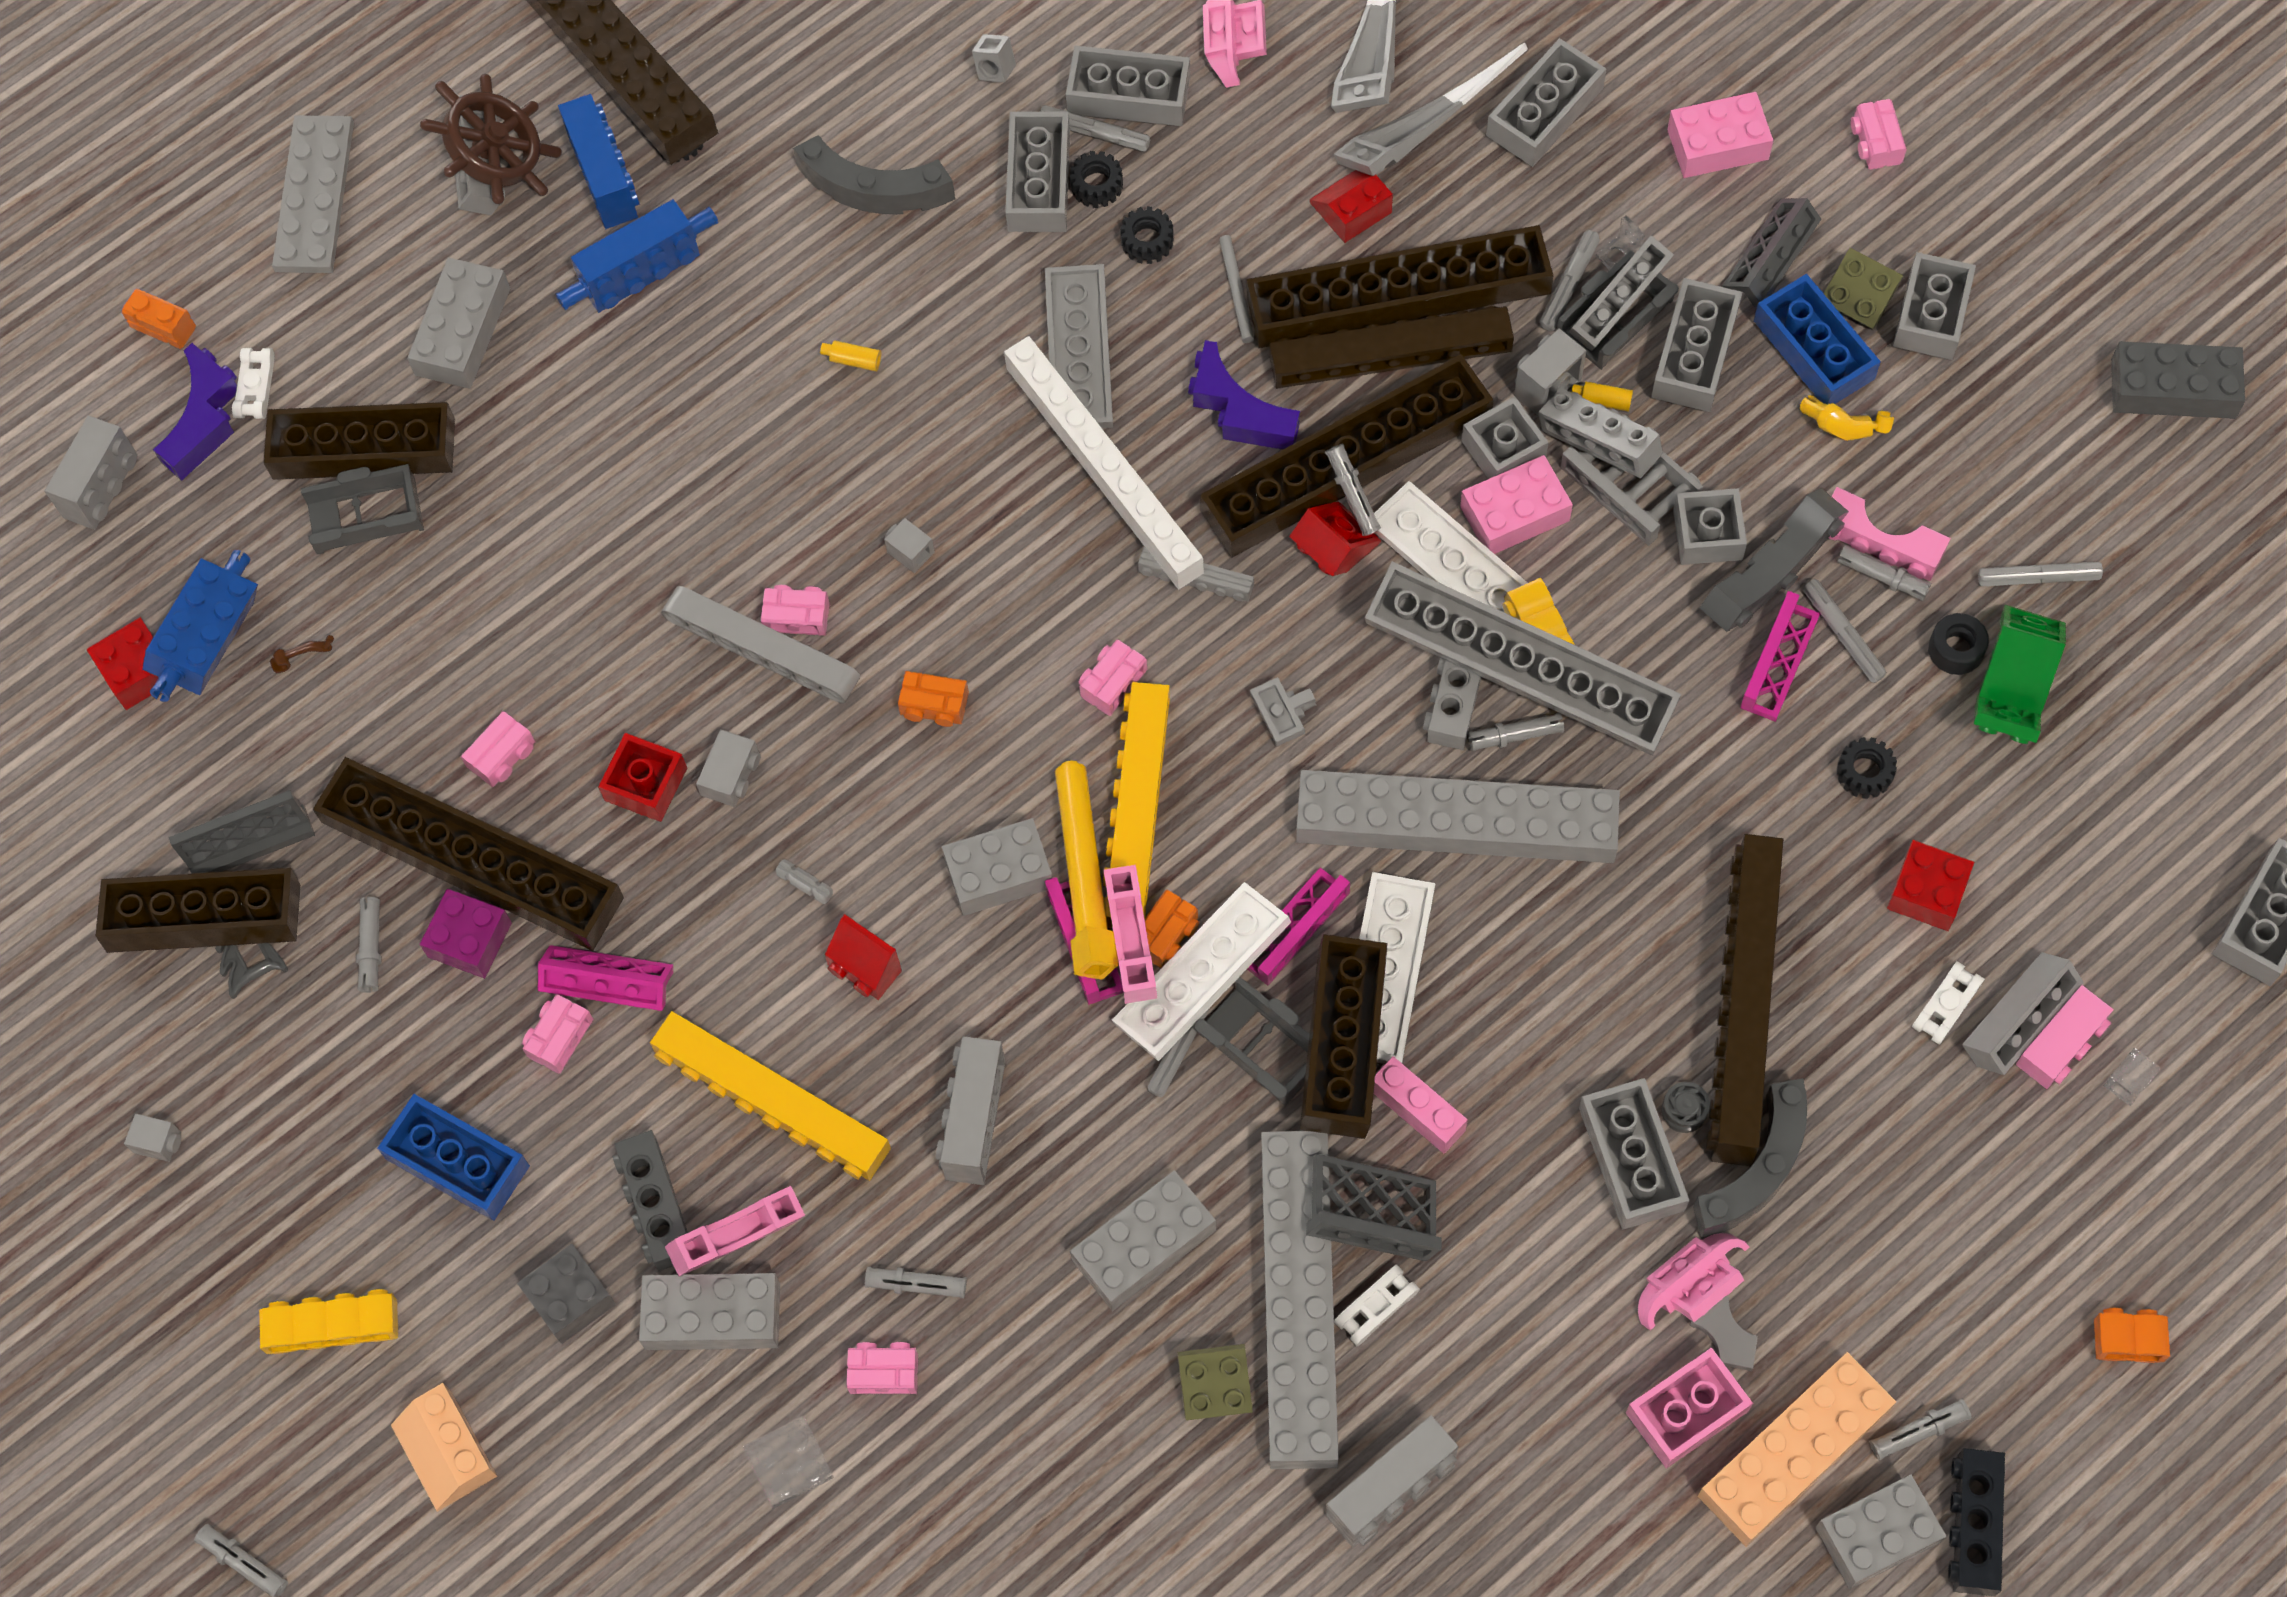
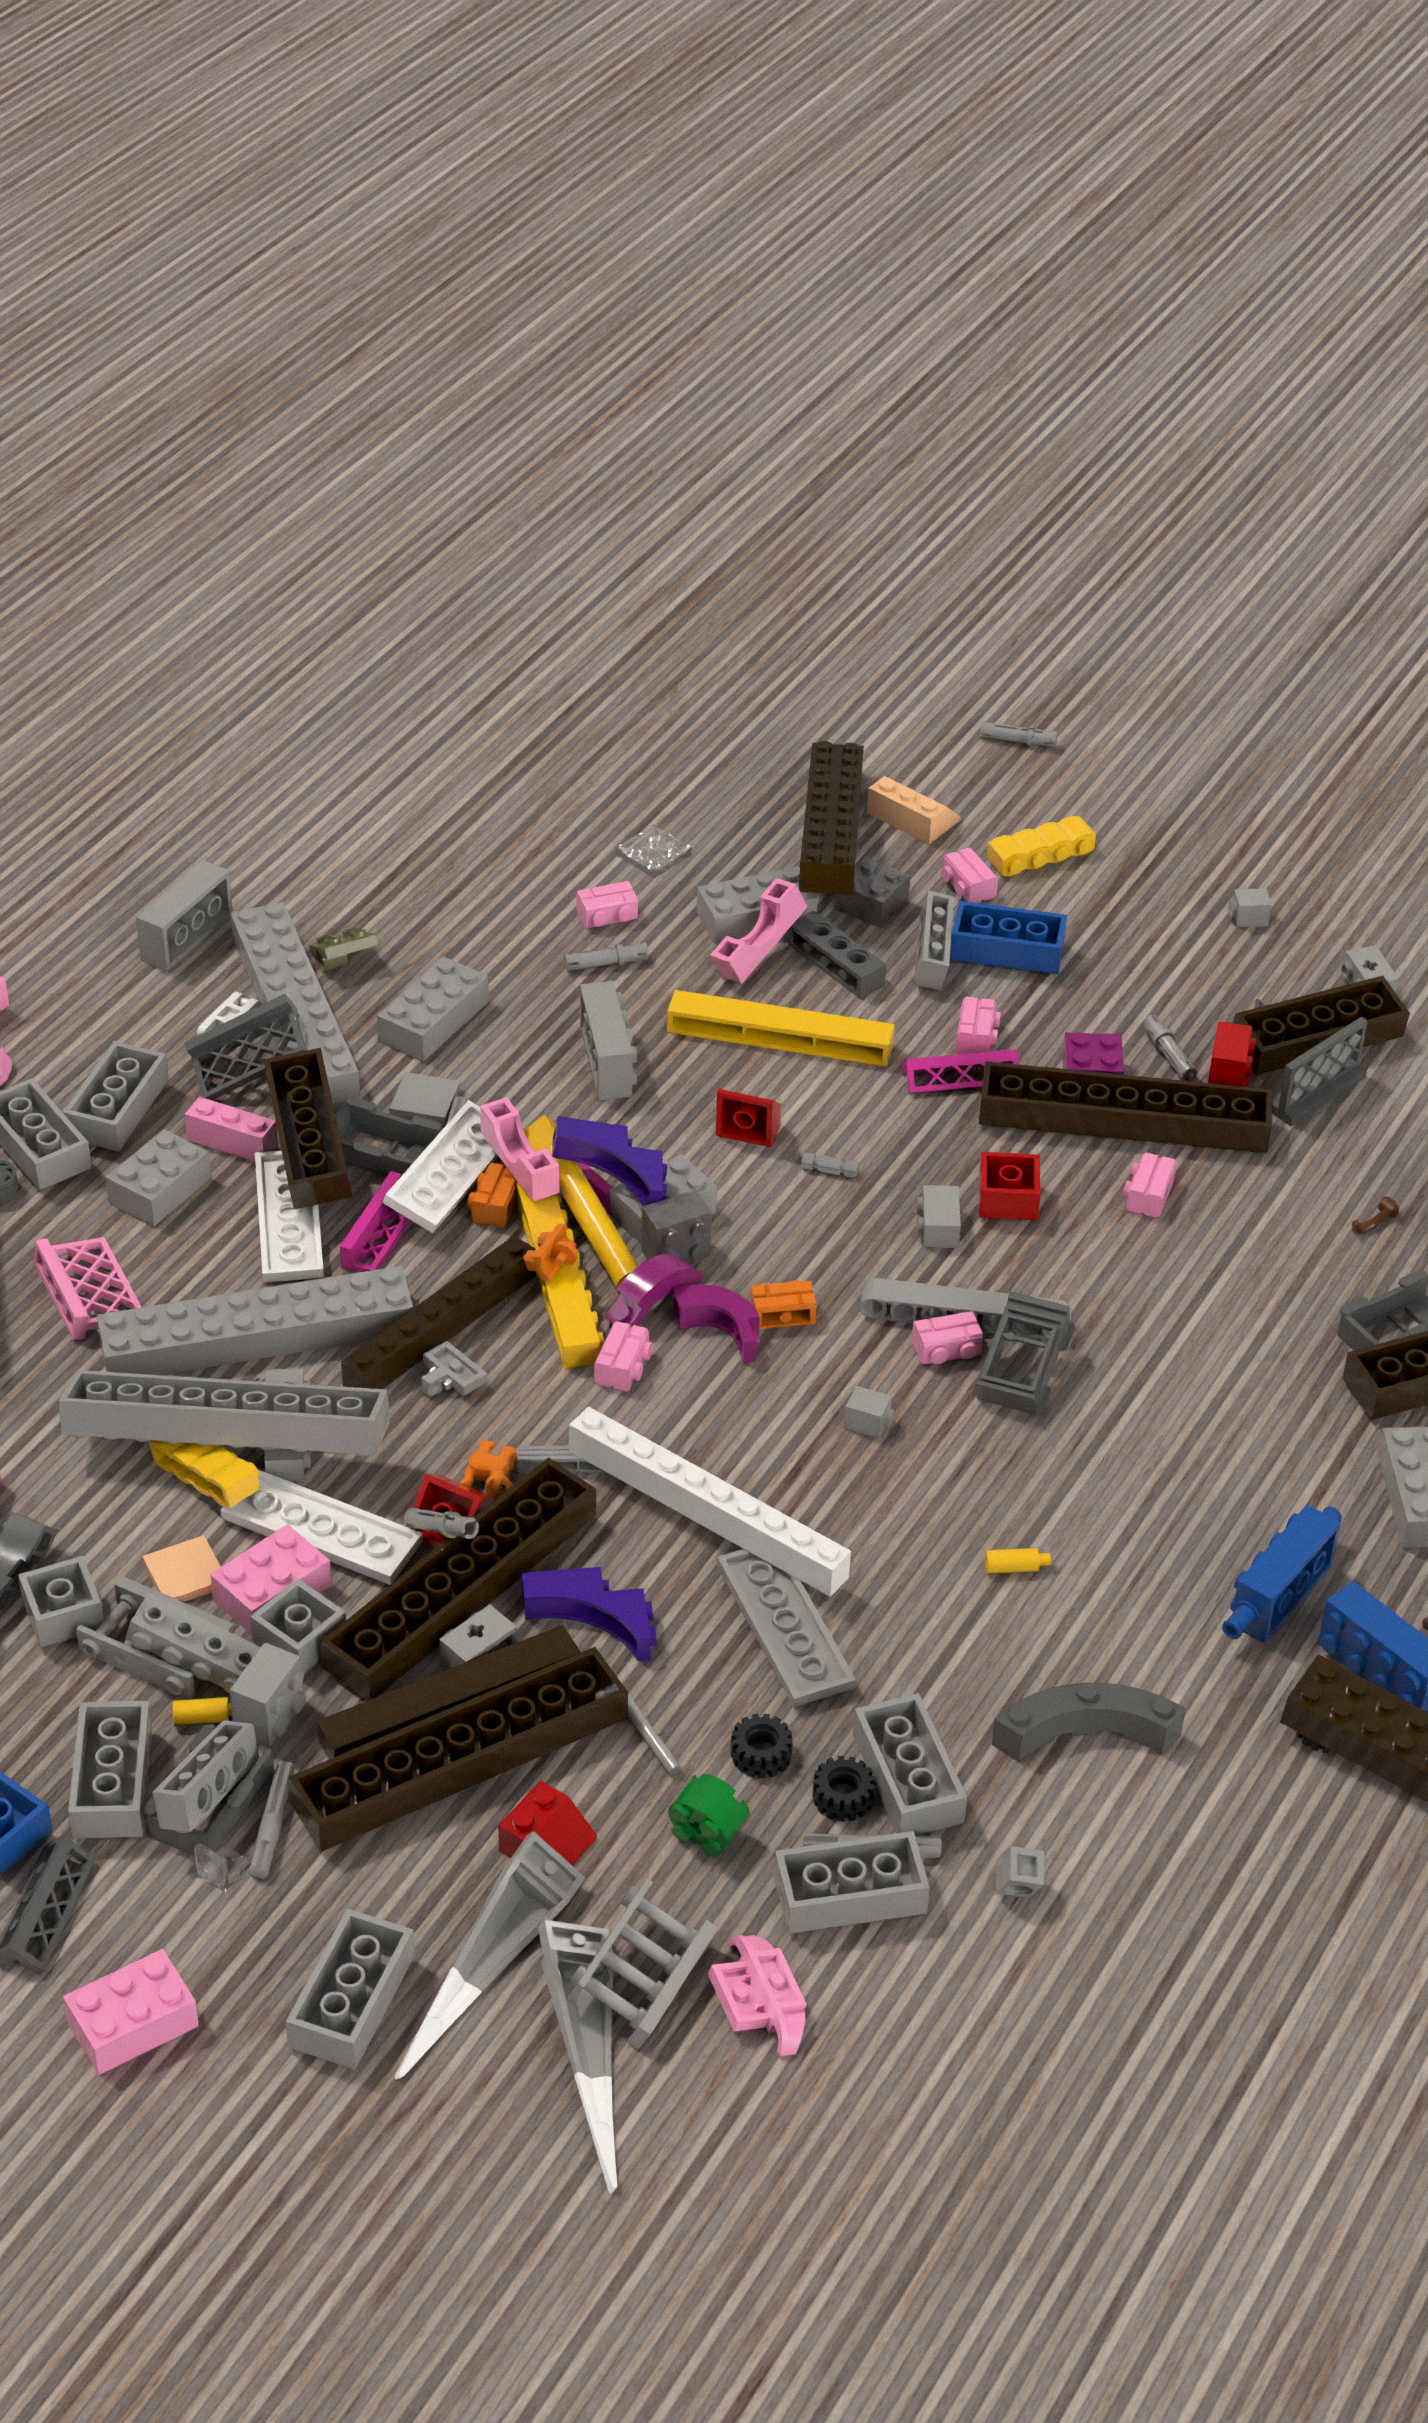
camera: 155 degrees right, 25 degrees down
(85, 973) = (1367, 964): none -> light grey brick
(328, 876) = (1230, 1055): none -> red brick
(440, 1292) = (969, 876): none -> bright pink brick
(539, 1177) = (934, 940): none -> light grey brick
(560, 1414) = (831, 819): none -> dark brown brick
(721, 576) = (1034, 1313): none -> dark grey piece
(1002, 715) = (719, 1308): none -> magenta arch
(1003, 800) = (677, 1227): none -> flat silver brick
(1038, 886) = (610, 1150): none -> dark purple arch
(1048, 738) = (648, 1285): none -> magenta arch
(1155, 783) = (553, 1252): none -> orange hips
(1193, 1110) = (424, 1097): none -> light grey tile
(1219, 168) = (707, 1814): none -> green brick
(1272, 773) = (438, 1317): none -> dark brown brick
(1283, 583) = (491, 1468): none -> orange animal
(1302, 46) = (675, 1966): none -> light grey fence
(1349, 391) = (476, 1637): none -> light grey brick
(1512, 1054) = (158, 1177): none -> light grey brick
(1534, 1189) = (117, 1094): none -> light grey brick
(1589, 551) = (183, 1569): none -> light nougat tile
(1641, 927) = (65, 1290): none -> bright pink fence

